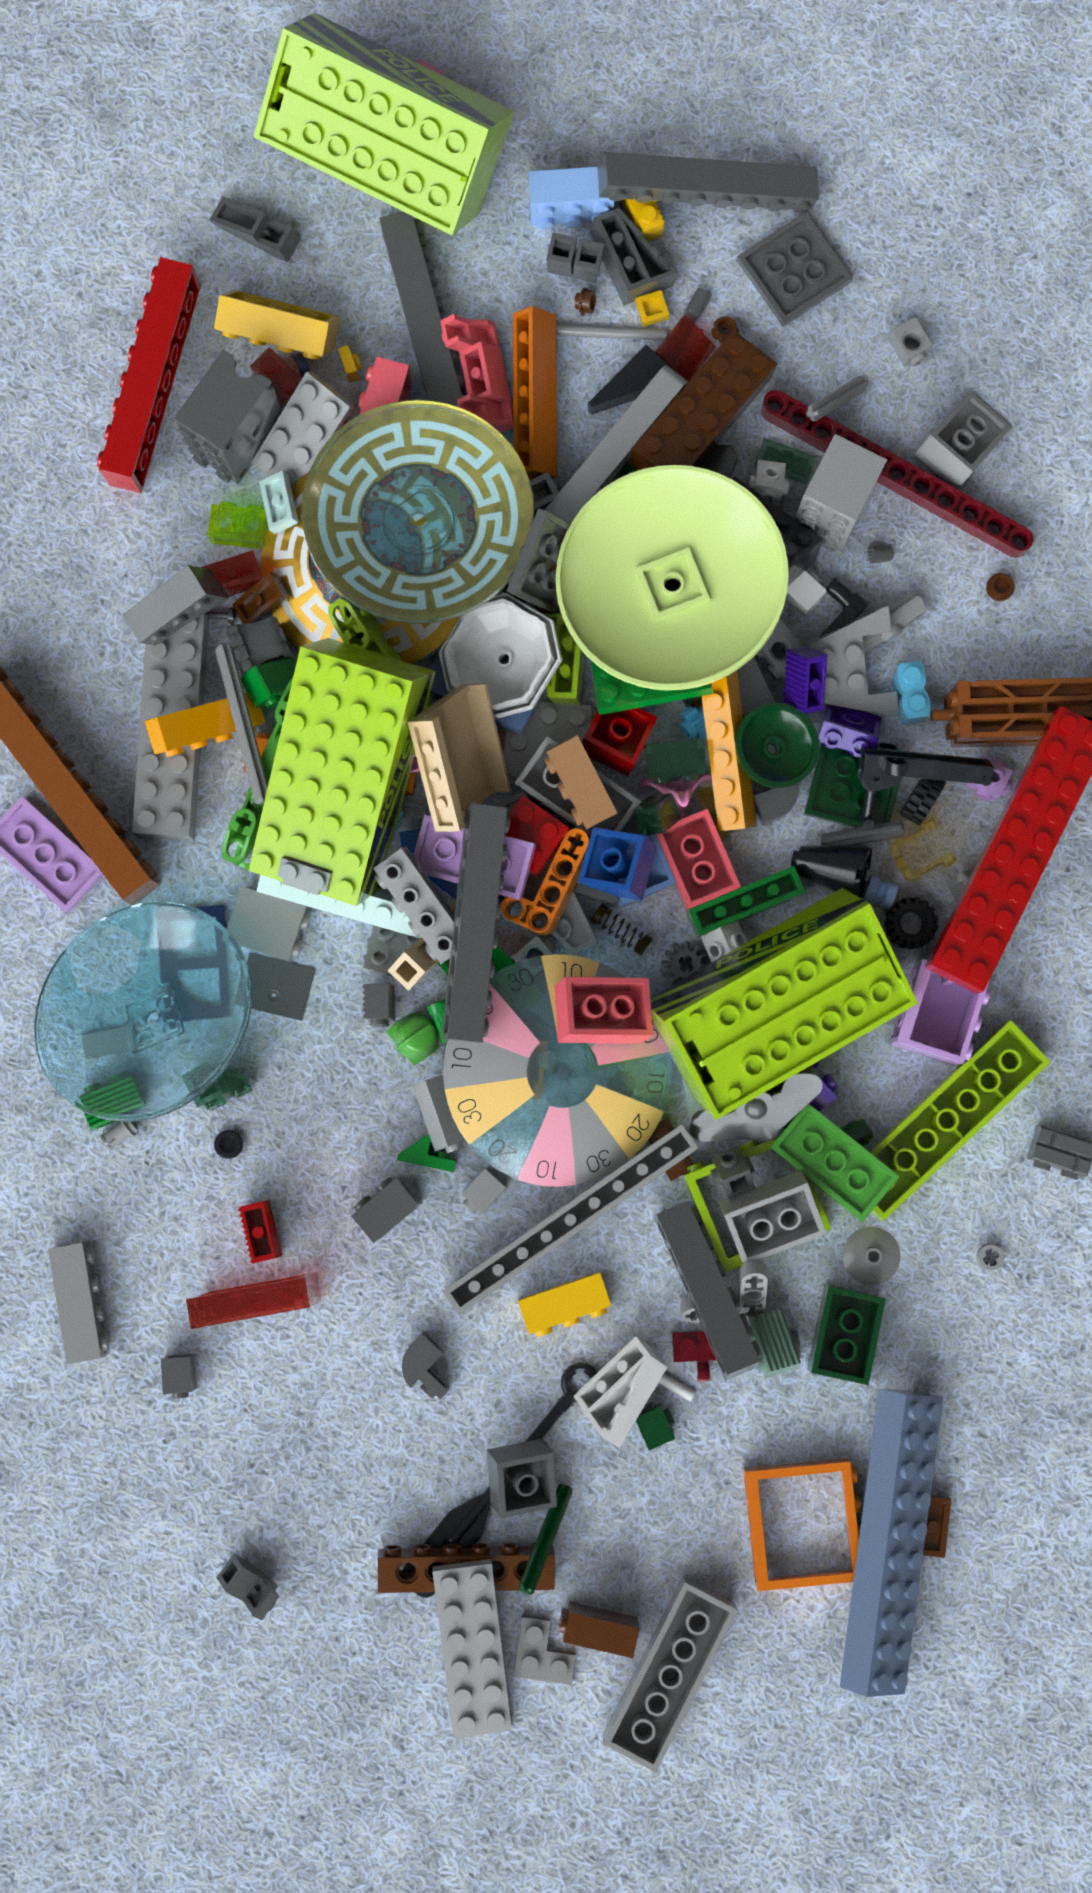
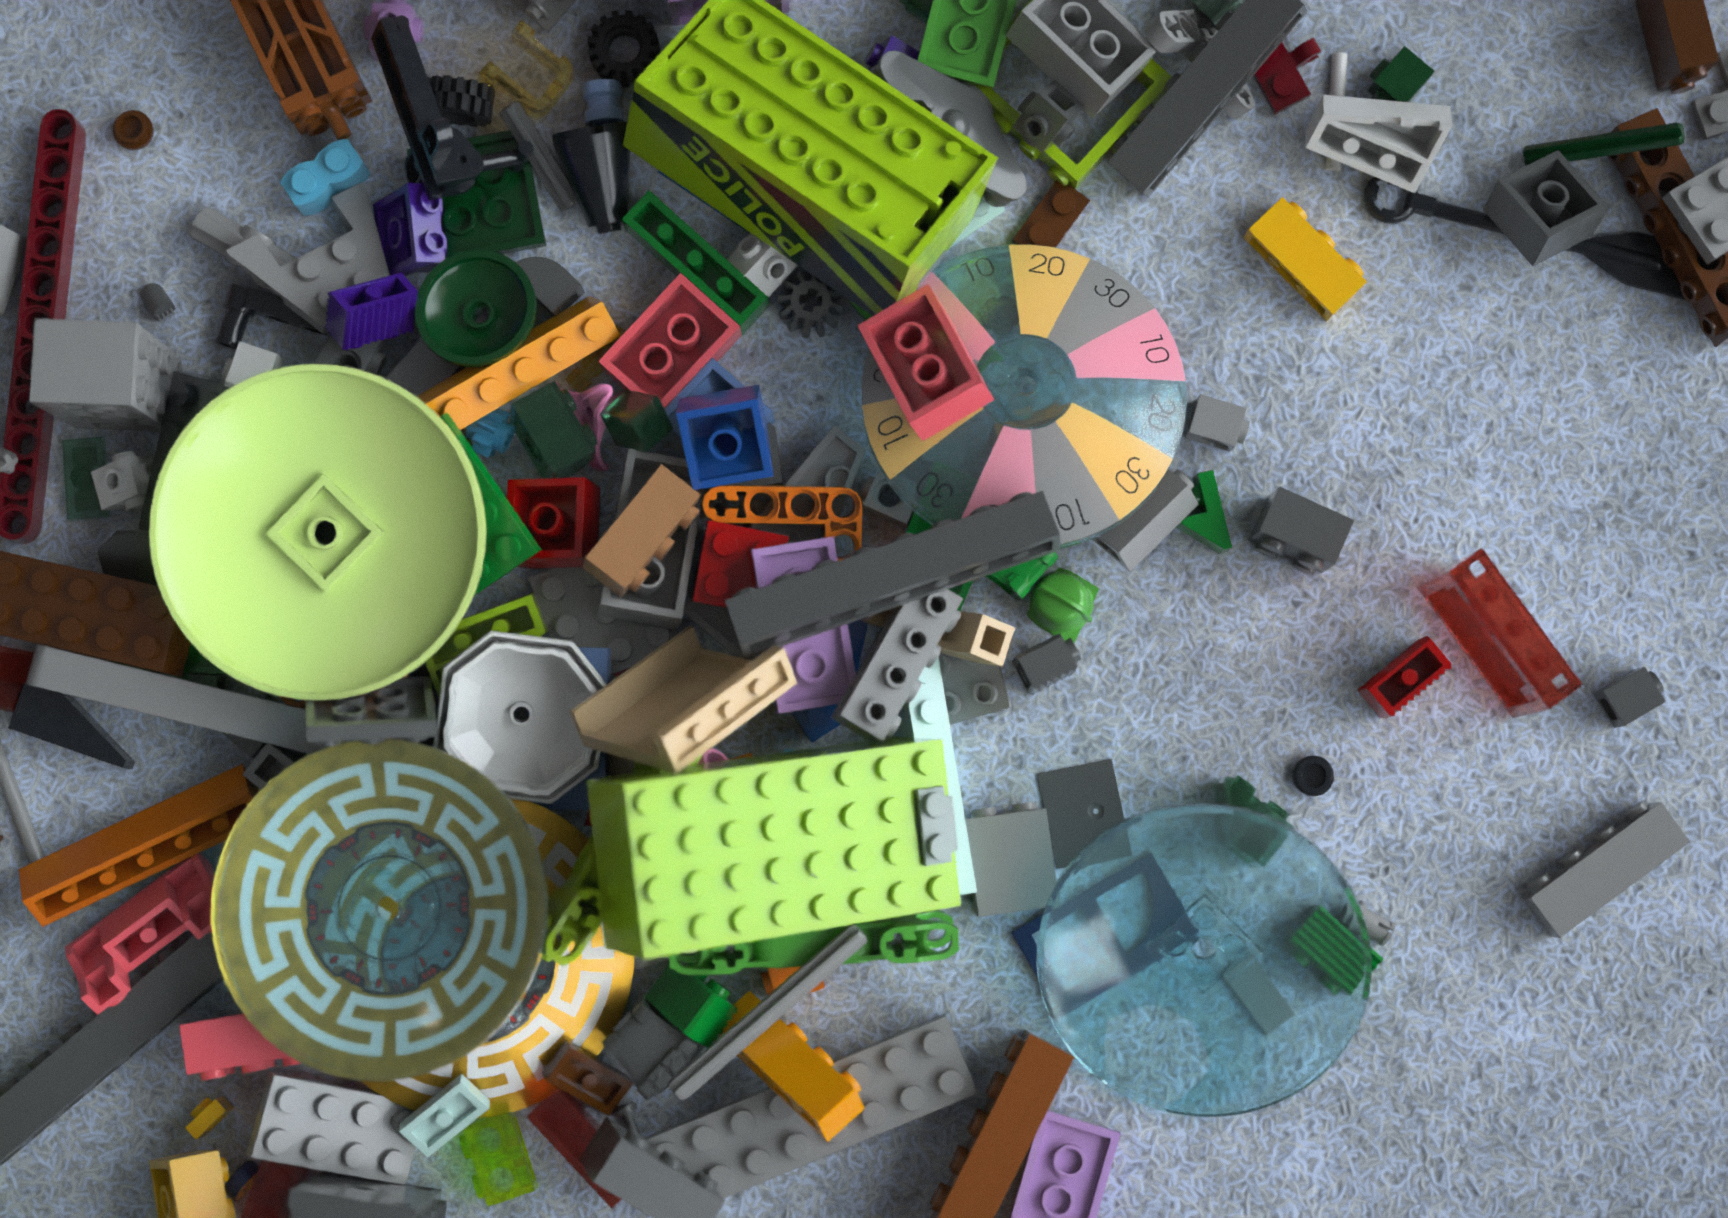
camera: 120 degrees left, 0 degrees up
(416, 1366) = (1467, 405): dark grey brick -> none
(570, 1219) = (1201, 295): light grey brick -> none
(641, 944) = (813, 369): dark brown piece -> none

